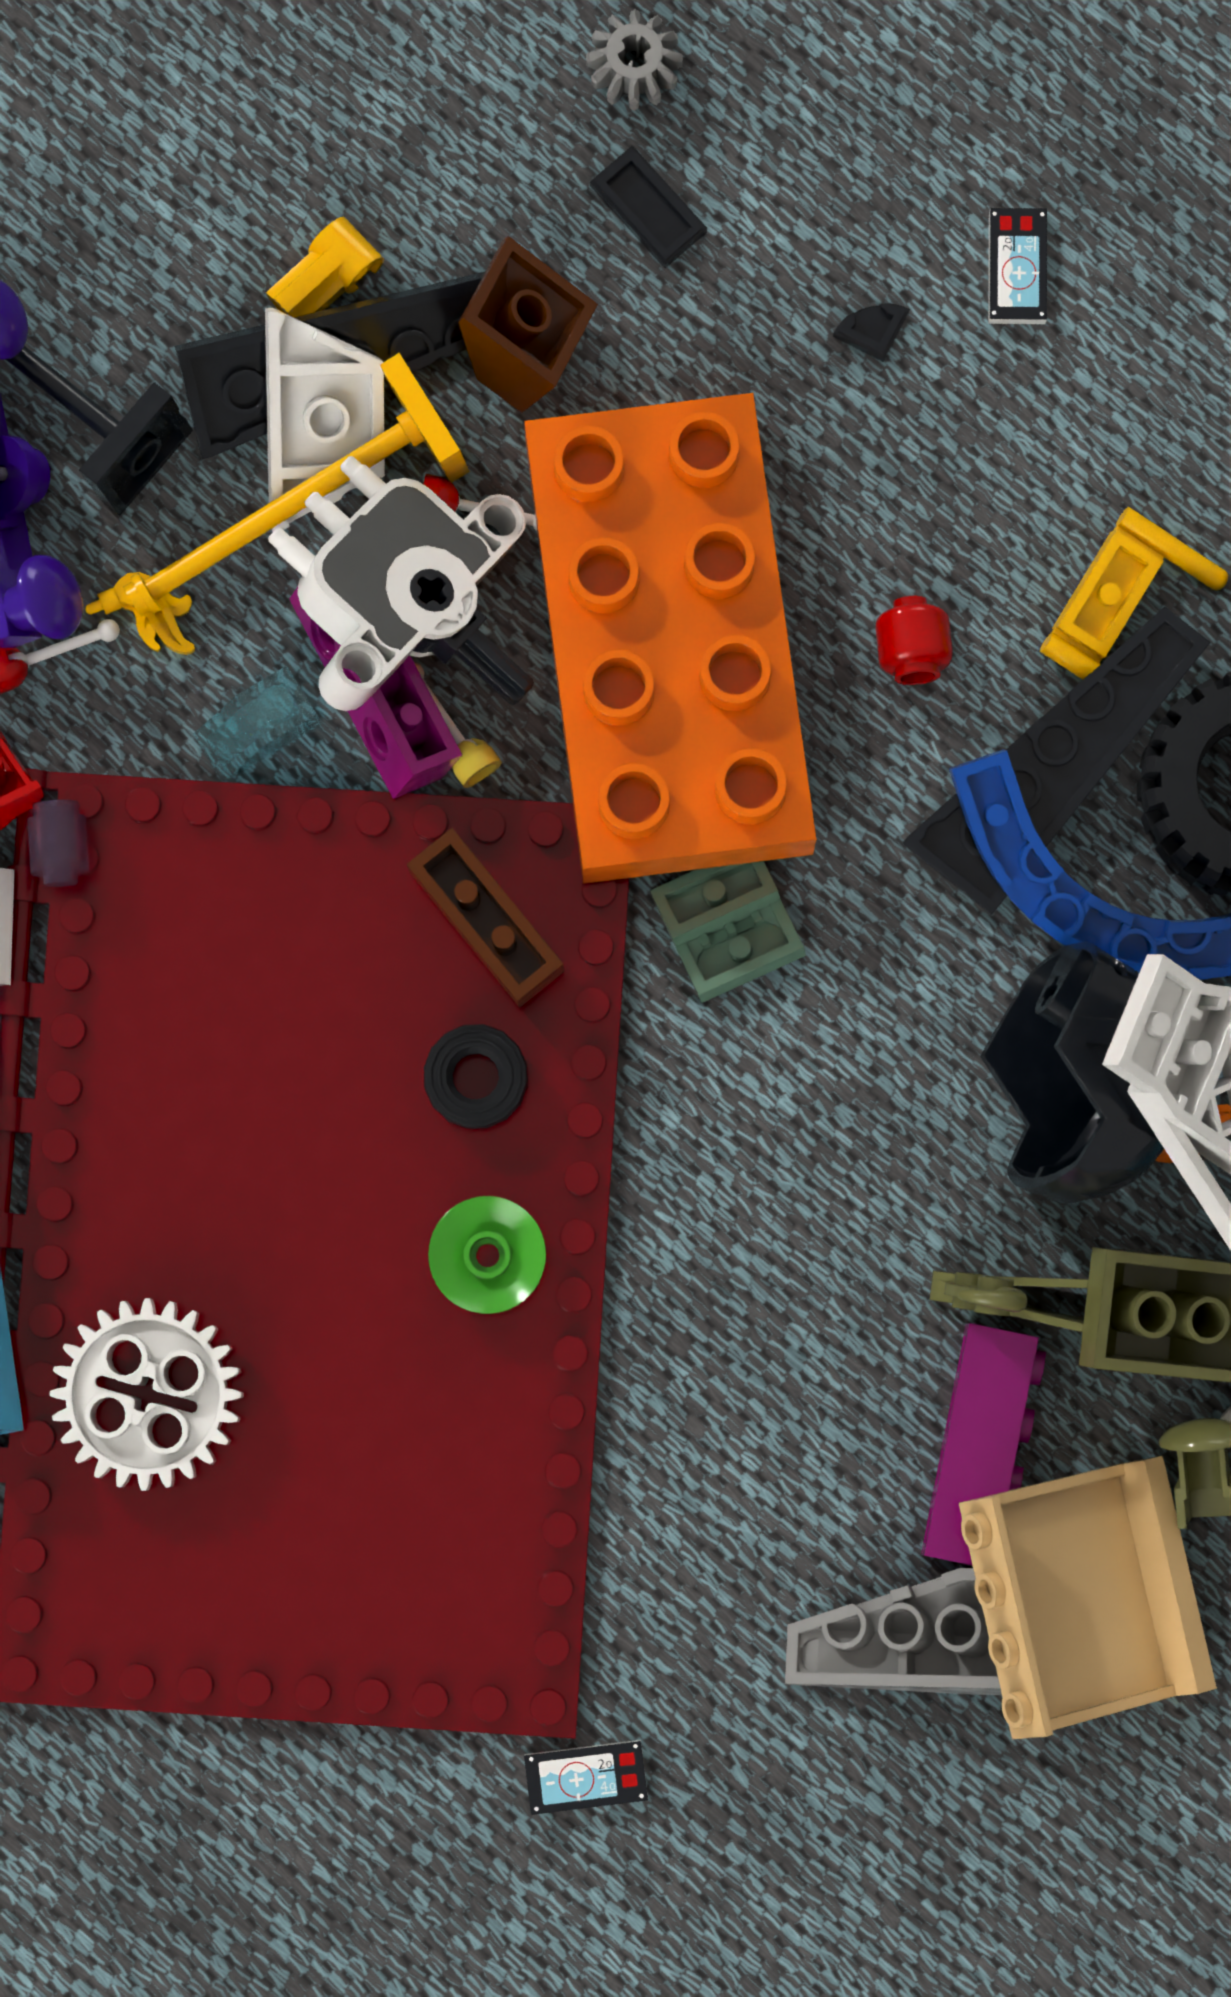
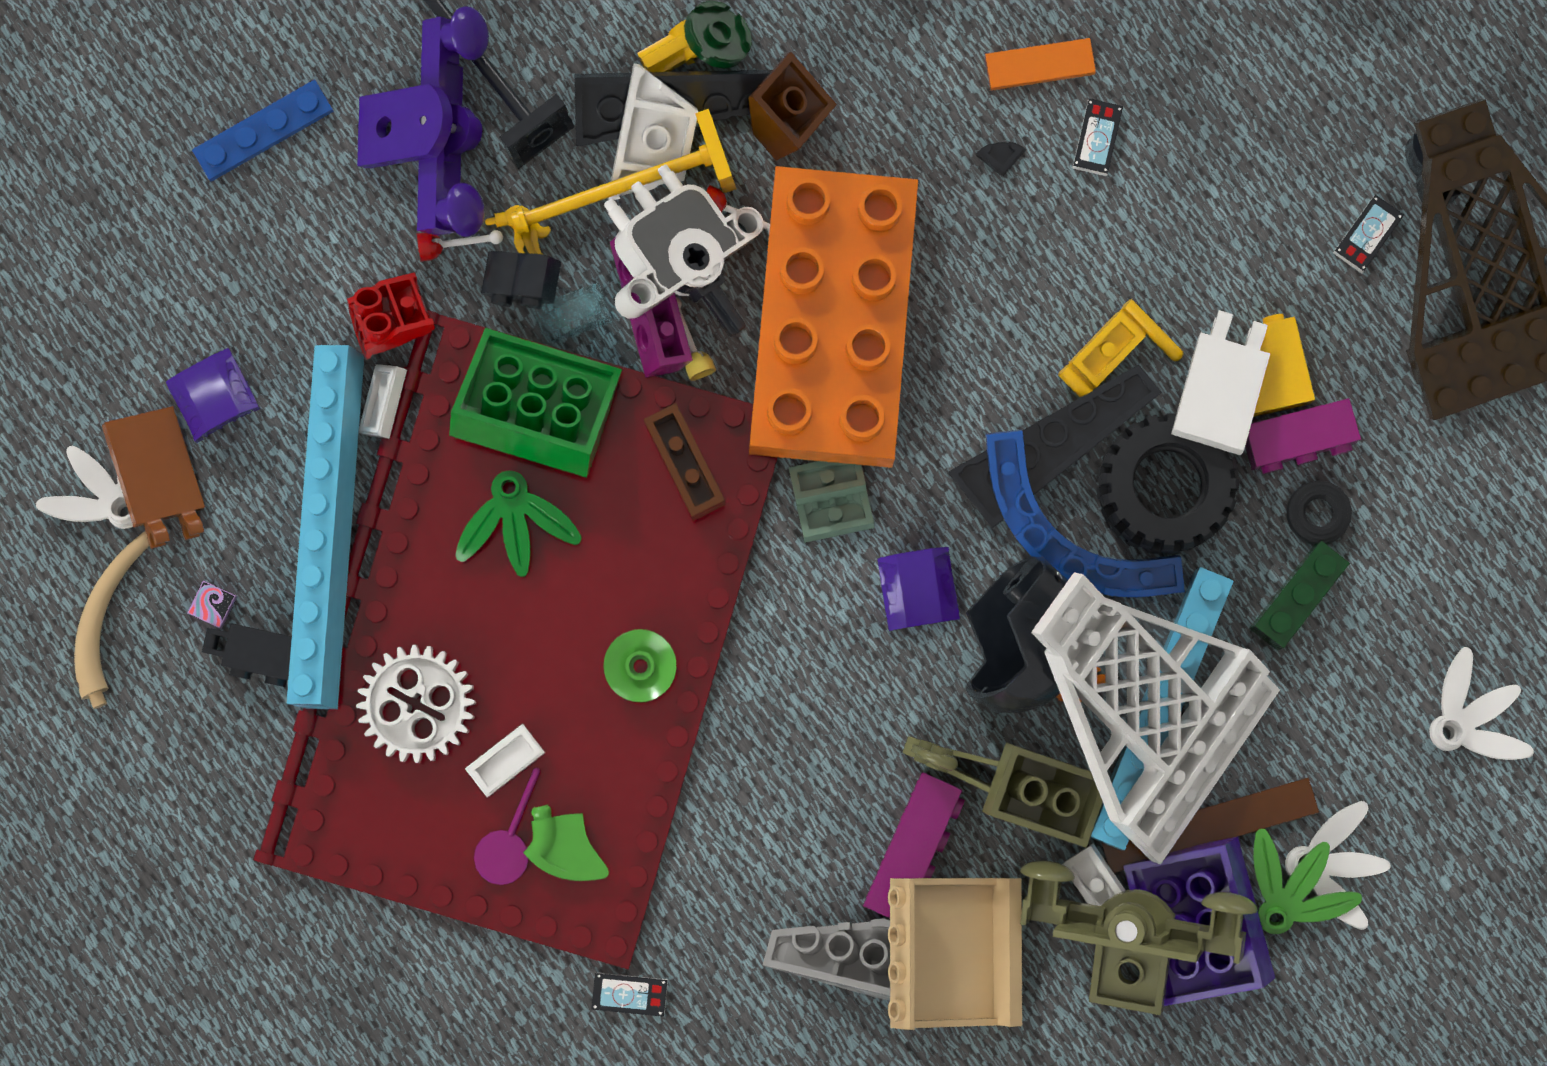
camera: 10 degrees right, 0 degrees up
(58, 842) = (436, 359): clear purple brick -> none
(162, 686) = (521, 279): none -> black brick
(227, 876) = (534, 402): none -> green slope
(230, 1053) = (515, 531): none -> green plant
(307, 1452) = (505, 760): none -> white tile
(337, 1602) = (500, 853): none -> magenta piece
(386, 235) = (717, 34): none -> dark green tile
(429, 1568) = (563, 847): none -> bright green arm
(462, 1043) = (657, 534): black tyre -> none
(648, 206) = (881, 51): black tile -> none
(896, 1035) = (918, 588): none -> dark purple slope
(901, 171) = (1040, 64): none -> orange tile
(914, 641) = (982, 351): red head -> none

